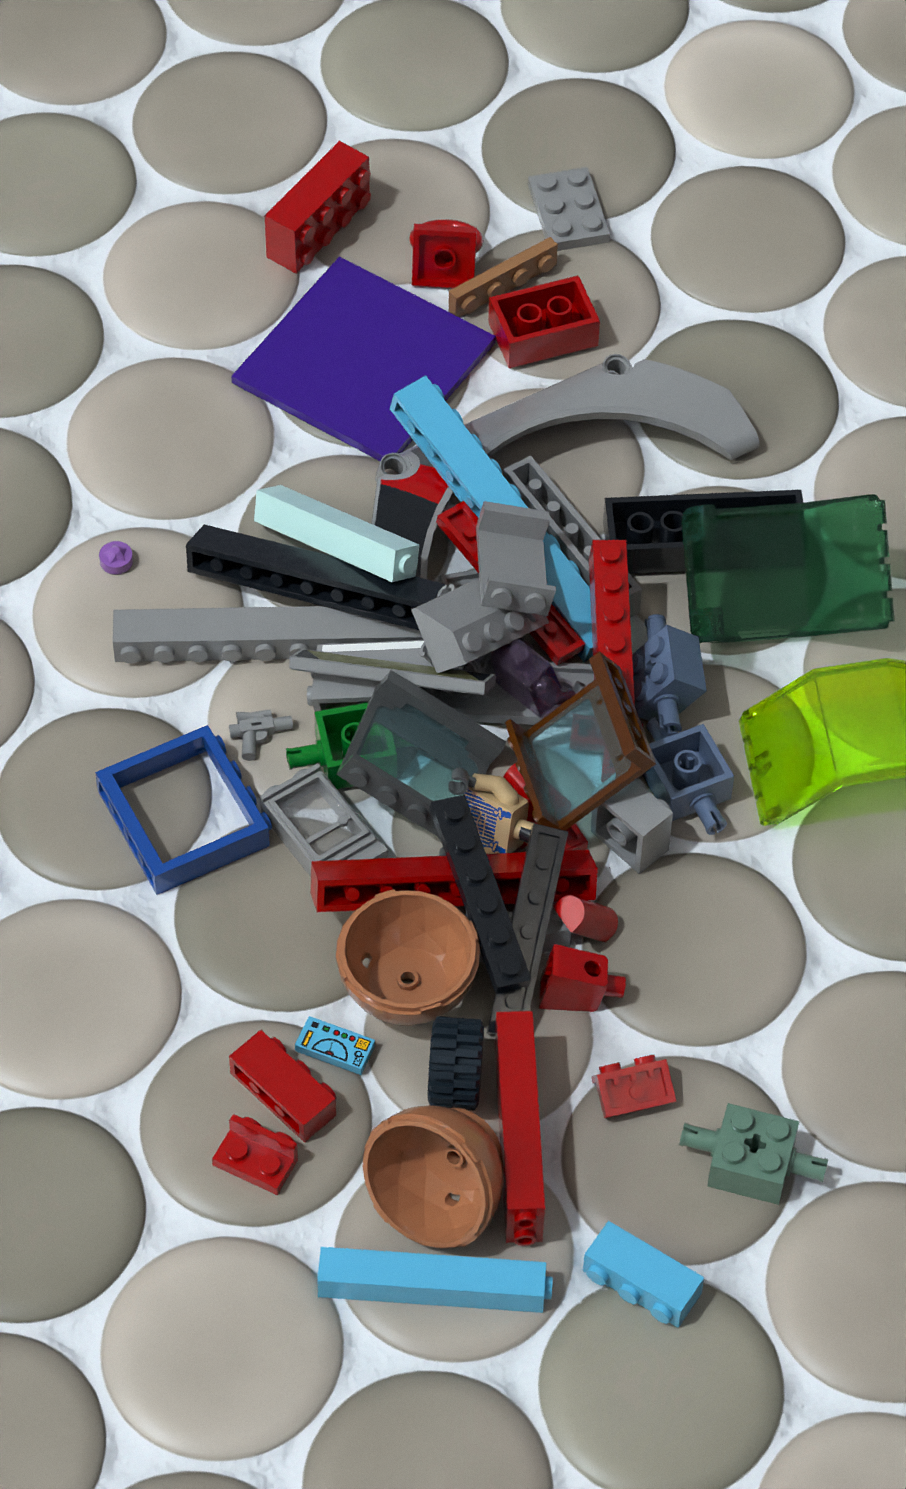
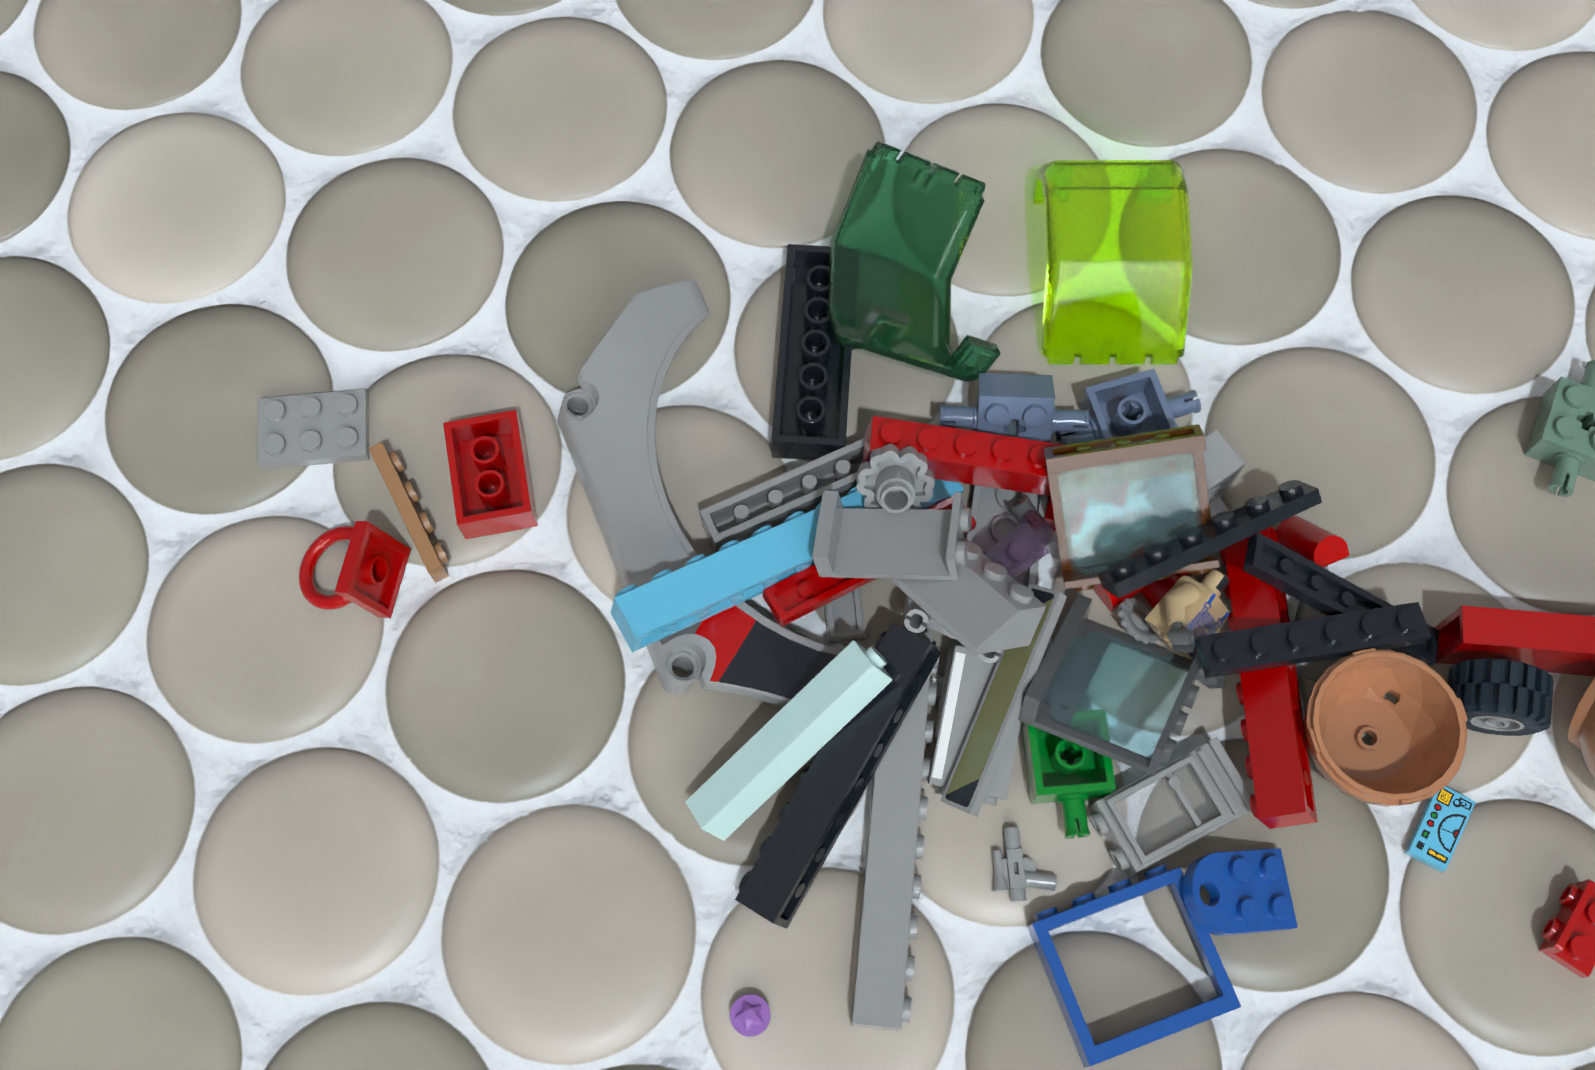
camera: 80 degrees left, 15 degrees up
(253, 881) = (1245, 892): none -> blue plate
(283, 1085) = (1499, 887): red brick -> none
(317, 207) = (262, 706): red brick -> none
(355, 347) = (495, 688): dark purple tile -> none
(568, 812) = (1202, 541): none -> black plate
(570, 567) = (895, 479): none -> light grey plant
(577, 980) = (1385, 560): red torso -> none
(634, 1087) = (1493, 530): red bracket -> none

